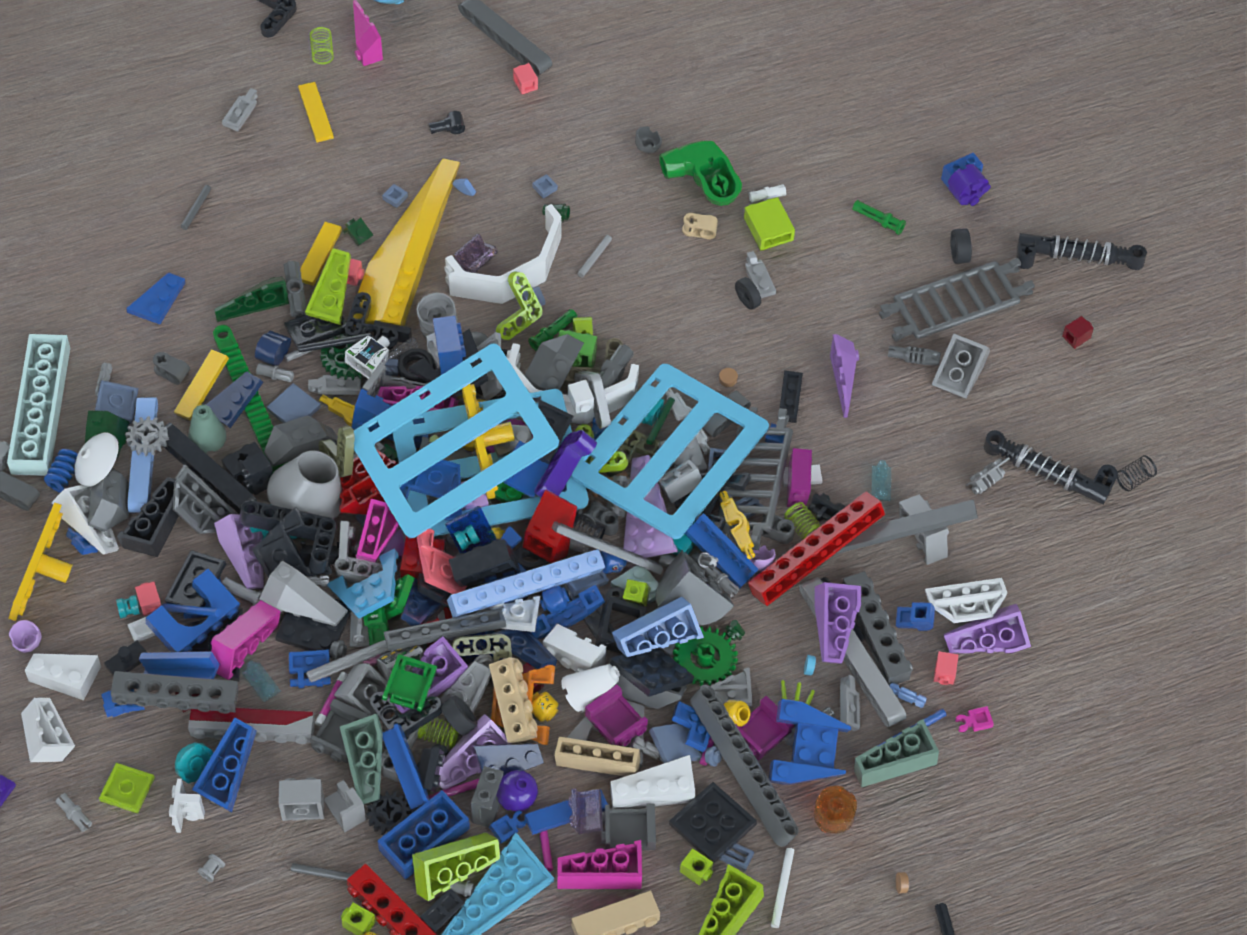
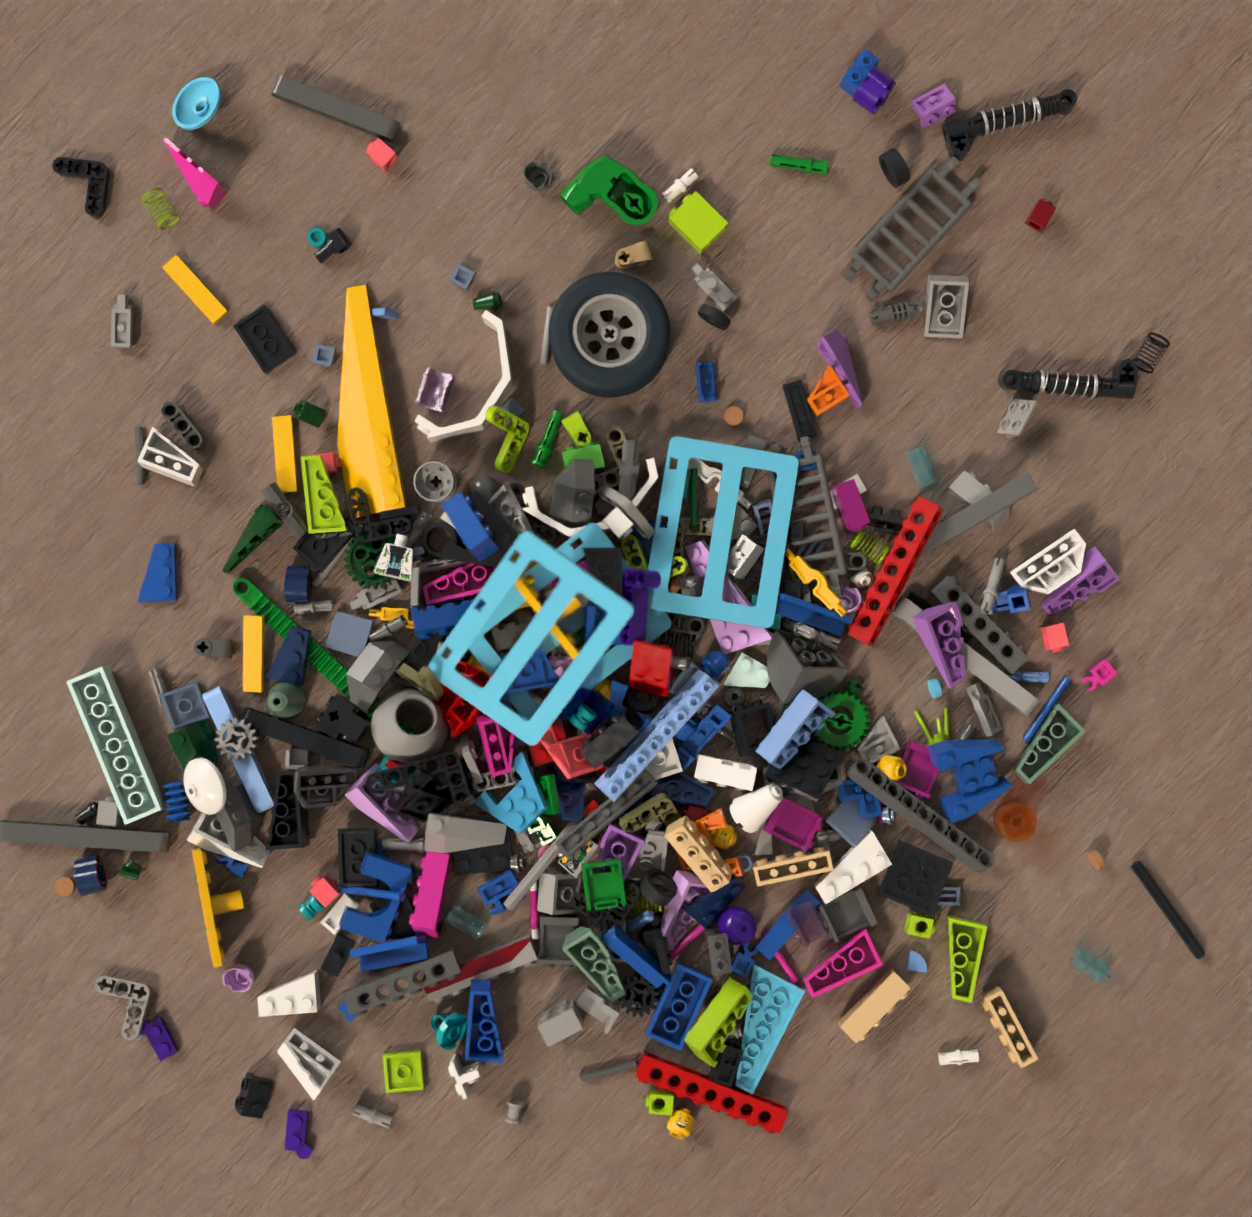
camera: 20 degrees left, 30 degrees up
(219, 215) = (167, 459): none -> white wedge
(247, 198) = (177, 419): none -> dark grey beam
(331, 413) = (388, 629): none -> dark grey pin
(332, 343) = (355, 555): black bar -> none
(352, 167) = (264, 339): none -> black tile
(428, 742) = (640, 921): none -> medium blue axle
(437, 114) = (317, 237): none -> teal tile
(553, 739) = (746, 861): none -> sand blue plate
(607, 547) = (711, 666): tile -> none
(637, 592) = (754, 691): lime brick -> none
(648, 235) = (625, 297): none -> black wheel
(677, 903) = (916, 962): none -> medium blue tile
(716, 341) = (706, 382): none -> blue hinge
(782, 547) = (861, 578): none -> white plate
(782, 888) = (997, 907): white bar -> none
(821, 391) = (827, 392): none -> orange wing
(900, 601) = (991, 591): none -> light grey pin
(1018, 220) = (934, 105): none -> medium lavender bracket

